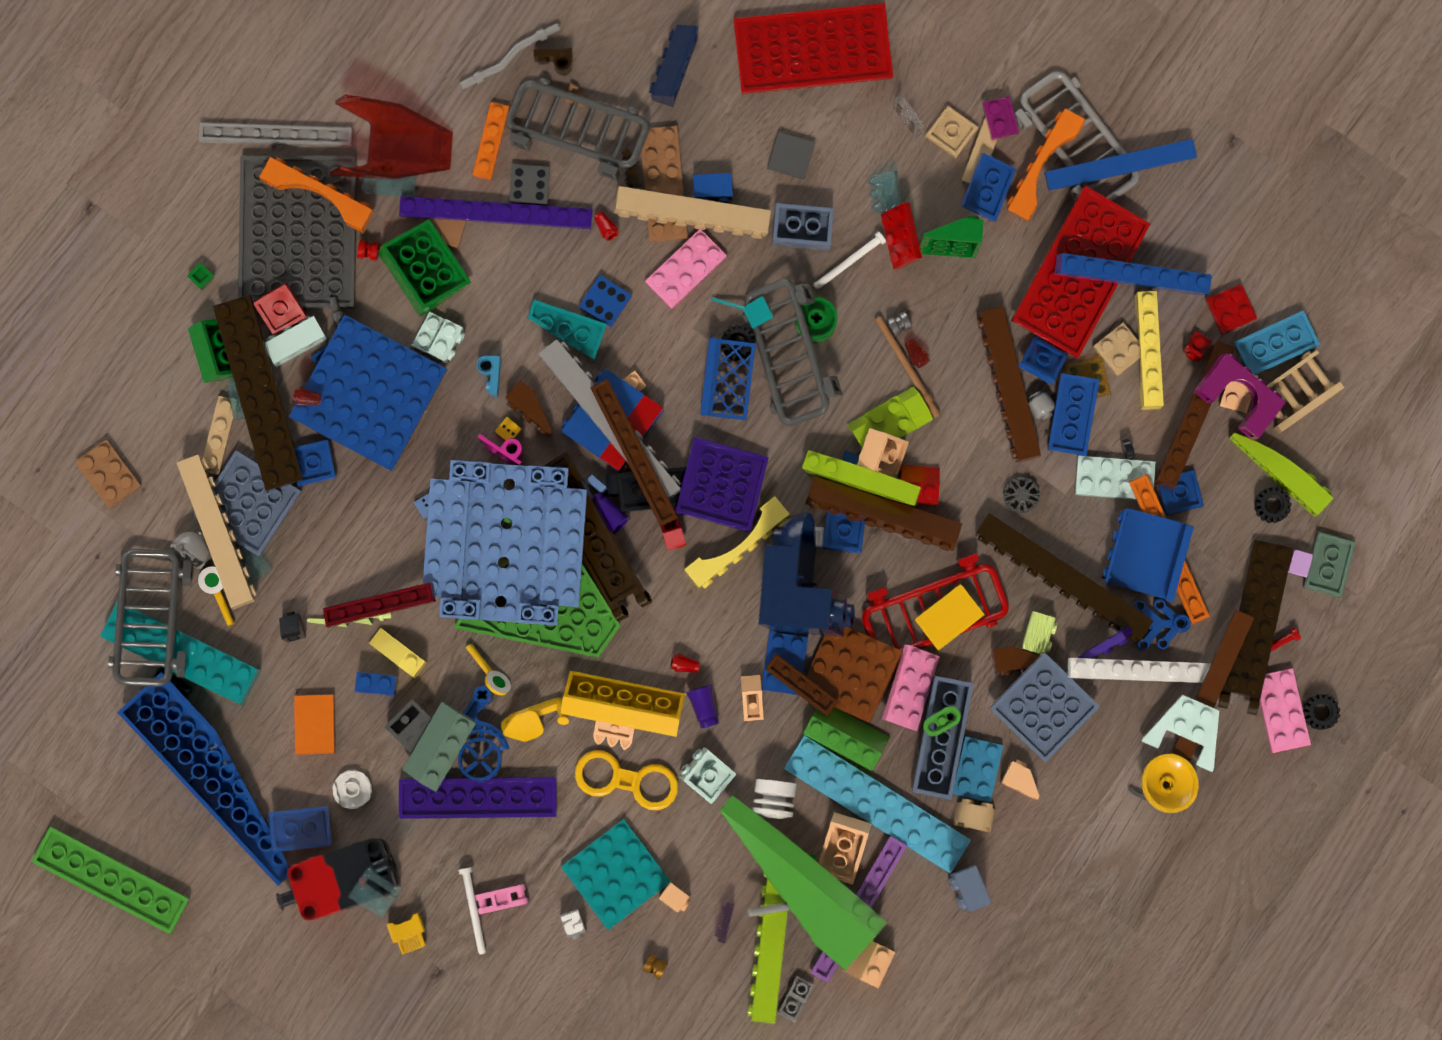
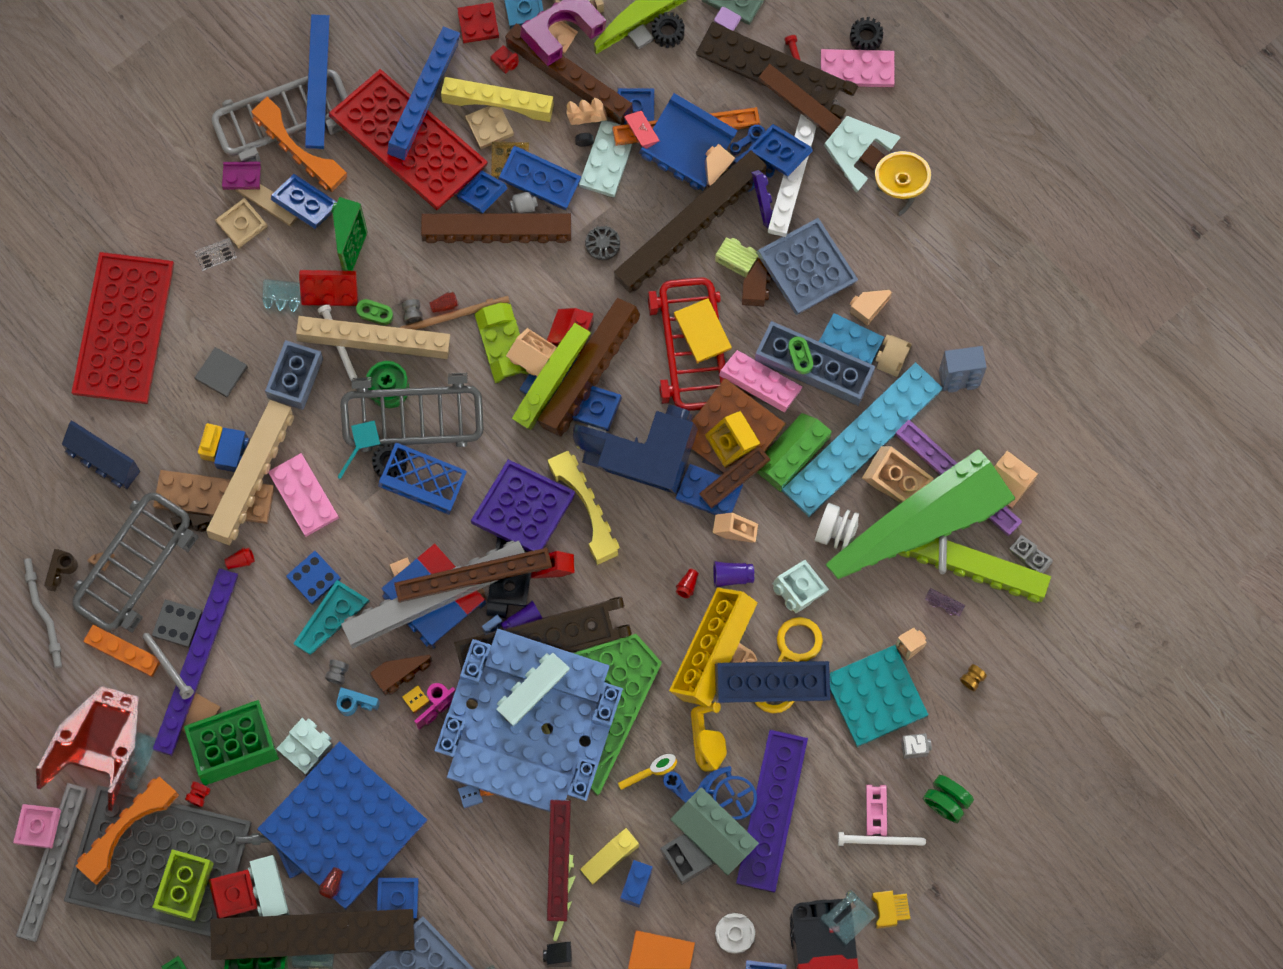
camera: 75 degrees left, 10 degrees down
(275, 261) = (183, 885): none -> lime brick
(304, 111) = (37, 826): none -> bright pink plate
(460, 211) = (185, 691): none -> light grey bar
(516, 348) = (336, 672): none -> flat silver wheel
(524, 966) = (948, 798): none -> green wheel
(531, 538) = (533, 689): none -> light aqua slope
(600, 769) = (772, 681): none -> dark blue plate
(715, 164) = (210, 442): none -> yellow piece
(839, 673) = (732, 438): none -> yellow slope
(860, 293) = (373, 337): none -> tan brick
(890, 288) = (375, 311): none -> bright green plate
(1133, 589) = (716, 163): none -> light nougat slope
(1149, 504) = (641, 129): none -> coral slope
(1155, 443) = (585, 112): none -> light nougat plate
(1163, 651) = (781, 150): none -> blue plate
(1258, 478) = (640, 36): none -> light grey tile

